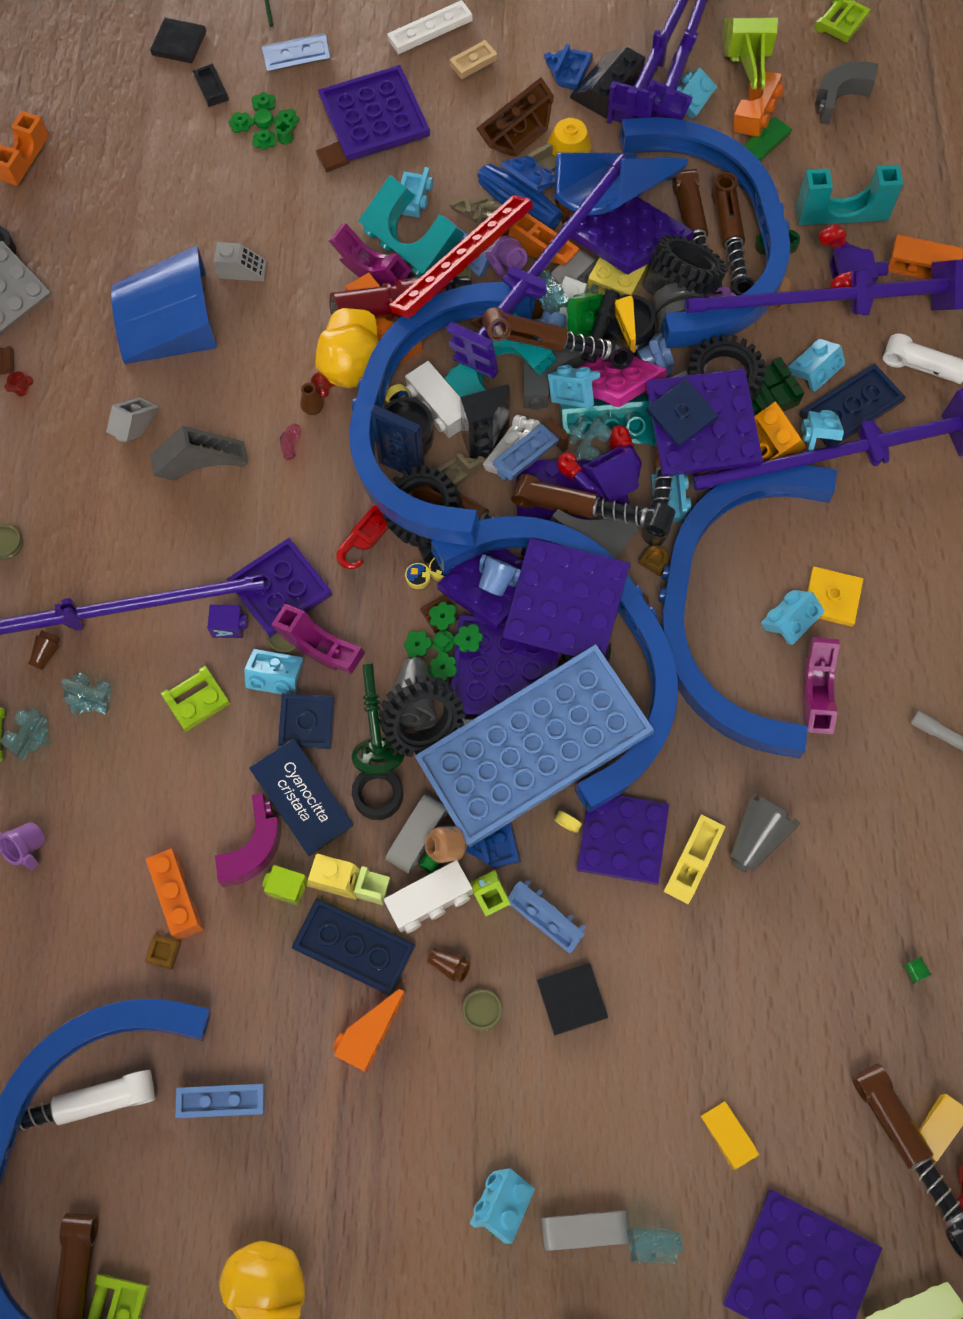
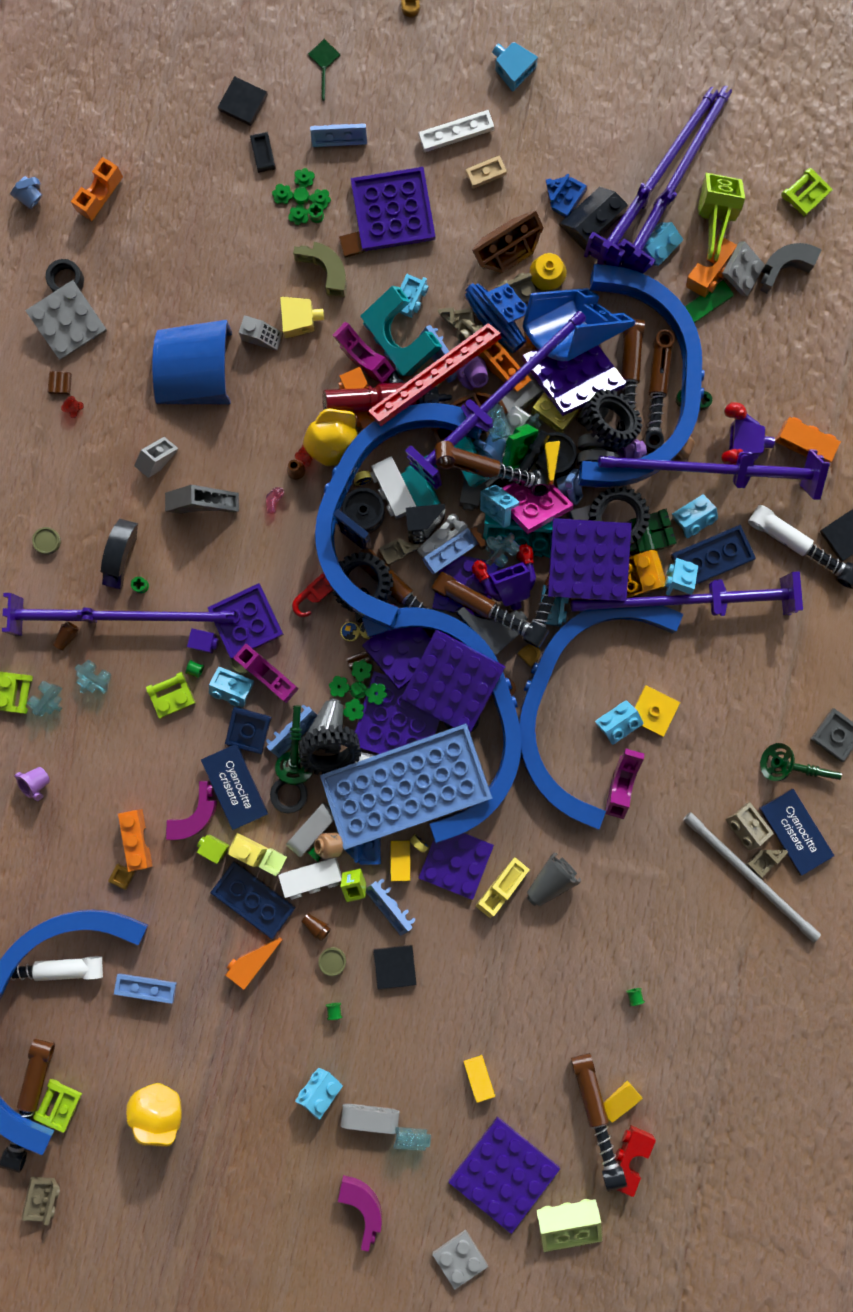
camera: 10 degrees right, 15 degrees up
(96, 534) = (116, 551): none -> black arch
(139, 573) = (143, 589): none -> green axle
(221, 658) = (194, 669): none -> green axle
(284, 237) = (298, 316): none -> light yellow torso
(308, 175) = (329, 261): none -> olive arch
(356, 724) = (282, 741): none -> medium blue plate
(497, 575) = (406, 652): medium blue piece -> none
(499, 1079) = (333, 1011): none -> green axle
(547, 852) = (400, 860): none -> yellow slope
(682, 413) = (573, 553): dark blue plate -> none
(795, 98) = (743, 268): none -> light grey plate
(871, 205) = (781, 382): teal arch -> none

